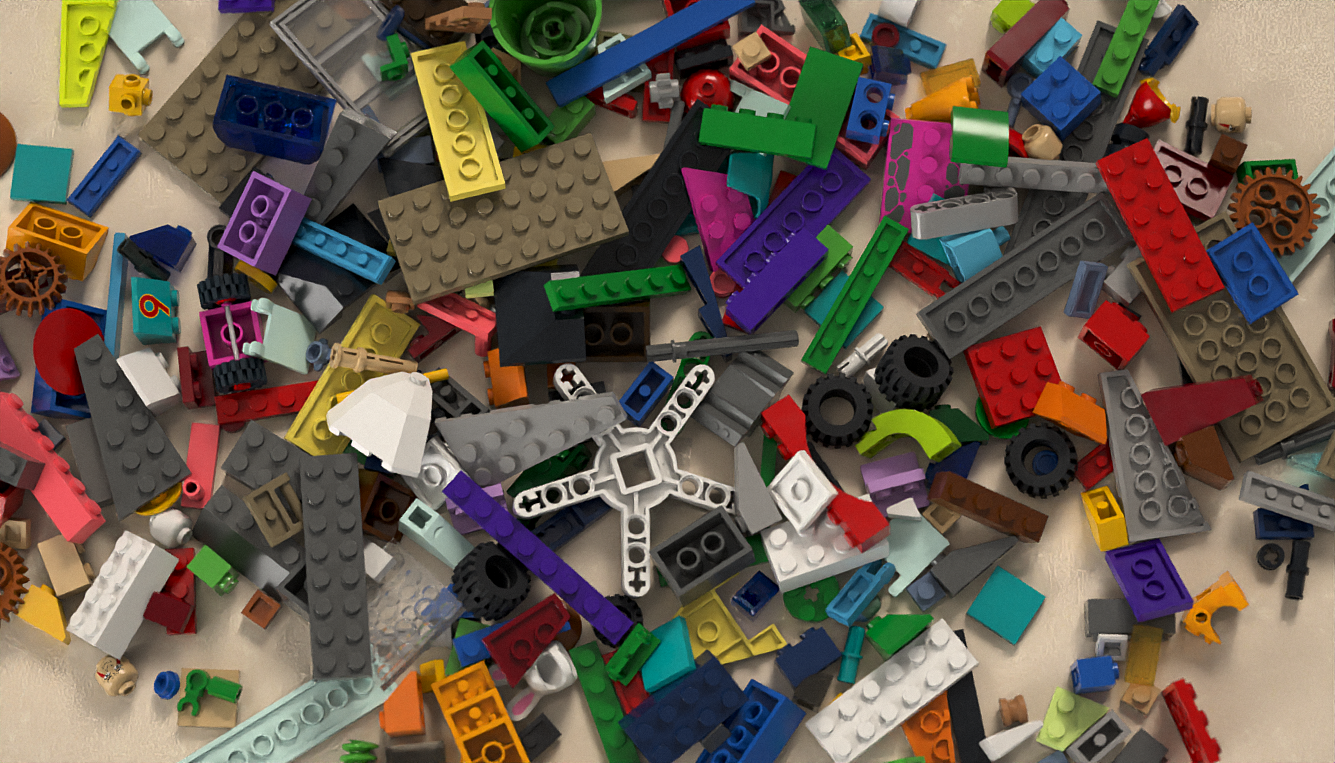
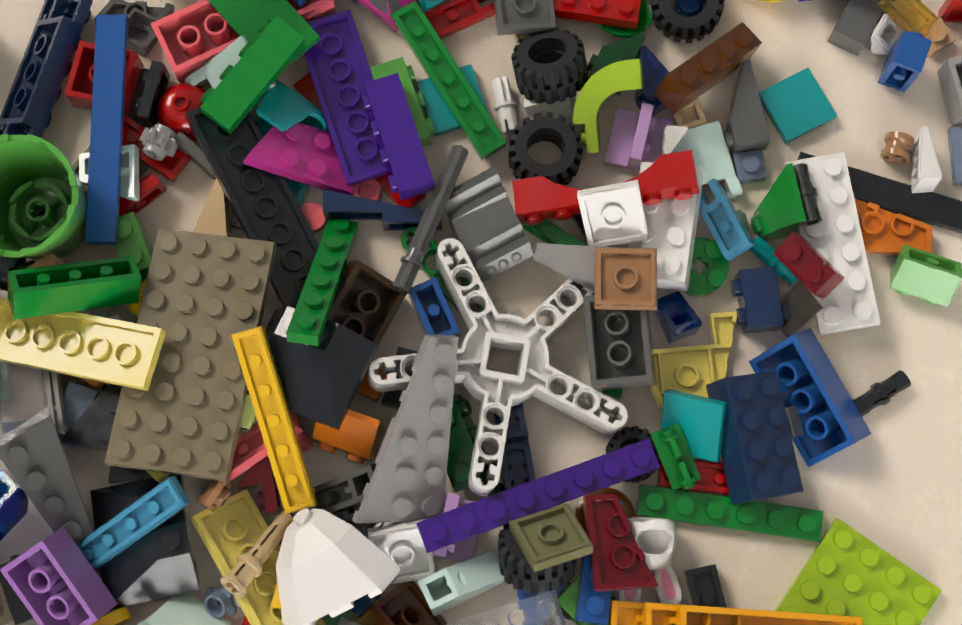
camera: 65 degrees left, 0 degrees up
(482, 312) = (274, 419): none -> yellow tile
(505, 581) = (550, 537): none -> olive tile
(751, 51) = (170, 43): tan plate -> none
(752, 529) = (625, 279): none -> medium nougat tile
(854, 679) = (808, 265): none -> dark red brick
(917, 646) = (808, 195): none -> pearl dark grey pin
(1068, 719) = (926, 105): yellowish green wing -> none

